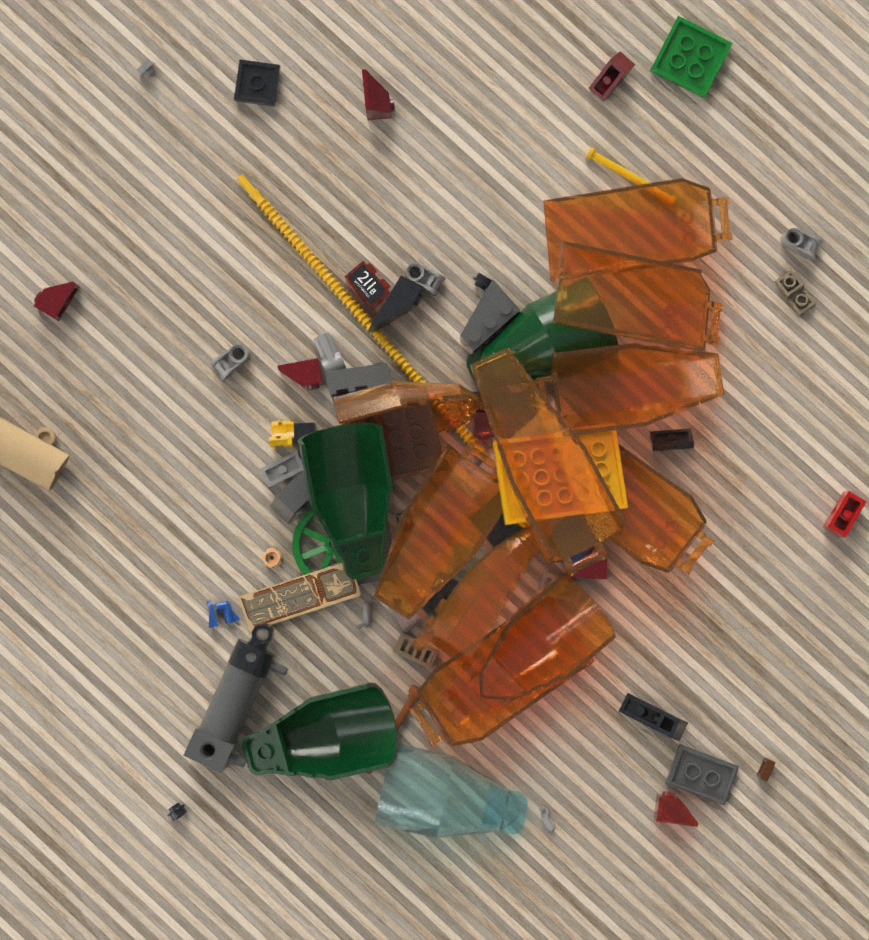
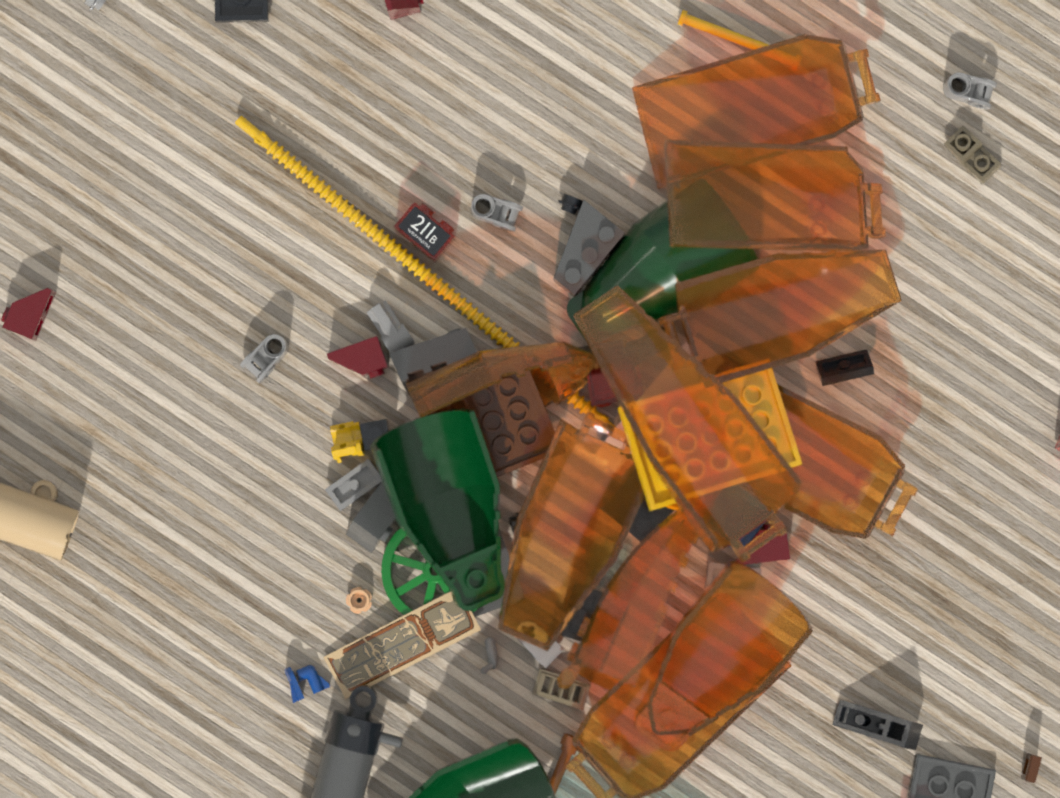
camera: 10 degrees left, 0 degrees up
(399, 302) = (468, 248): black slope -> none

